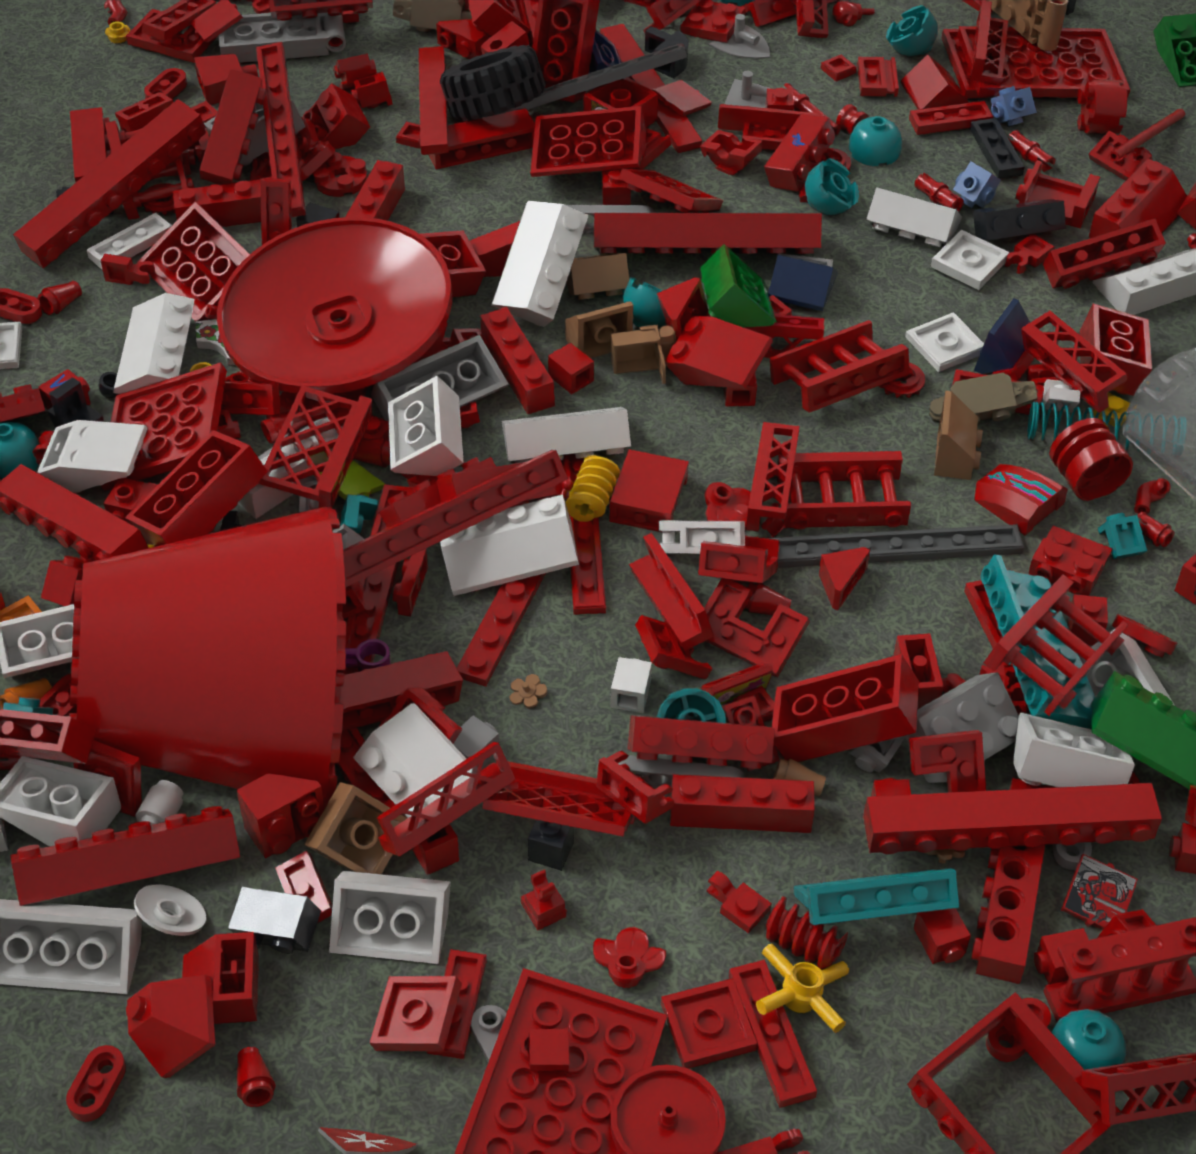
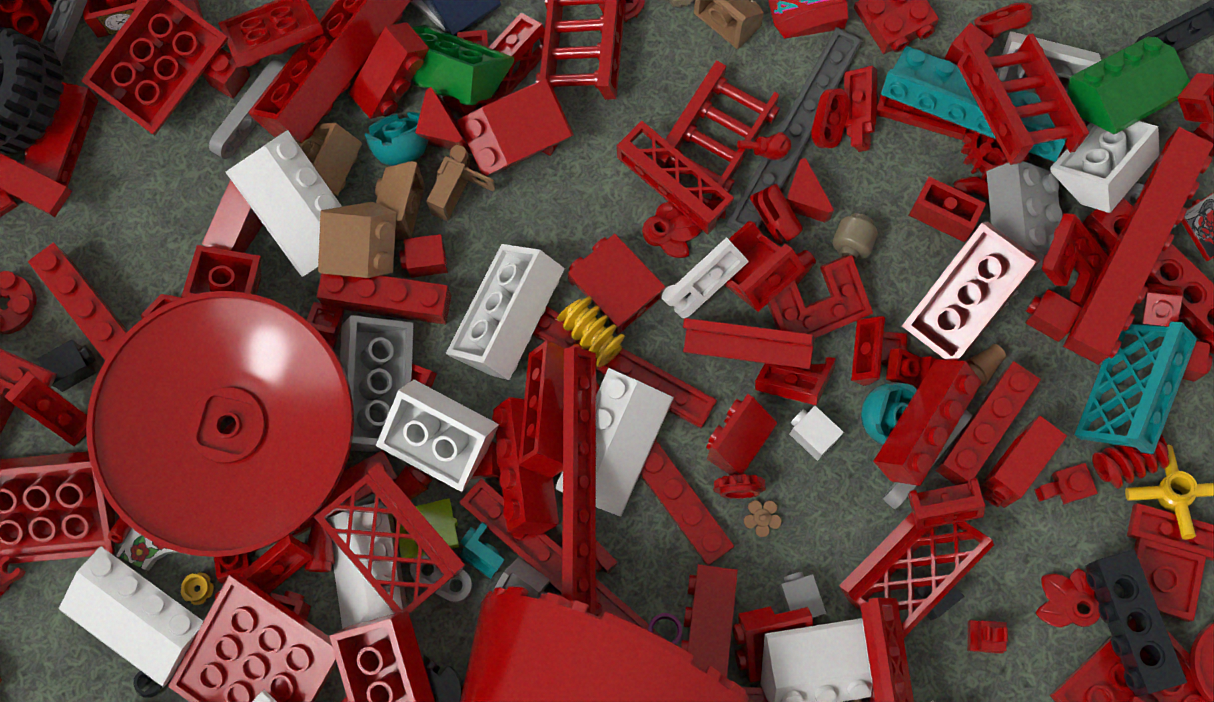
camera: 55 degrees left, 25 degrees up
(538, 650) = (739, 486): none -> red gear
(540, 305) = (357, 240): none -> medium nougat slope
(581, 626) = (742, 437): none -> red slope
(607, 1040) = (1151, 634): none -> black brick
(698, 258) = (388, 70): none -> red brick
(720, 852) = (1021, 462): none -> red window
(803, 559) = (776, 213): none -> red arm
(832, 624) = (855, 236): none -> dark tan head
(859, 523) = (771, 147): none -> red piece
(925, 556) = (830, 118): none -> red plate
(953, 576) = (861, 116): none -> red hinge
(973, 869) = (1162, 304): none -> brick

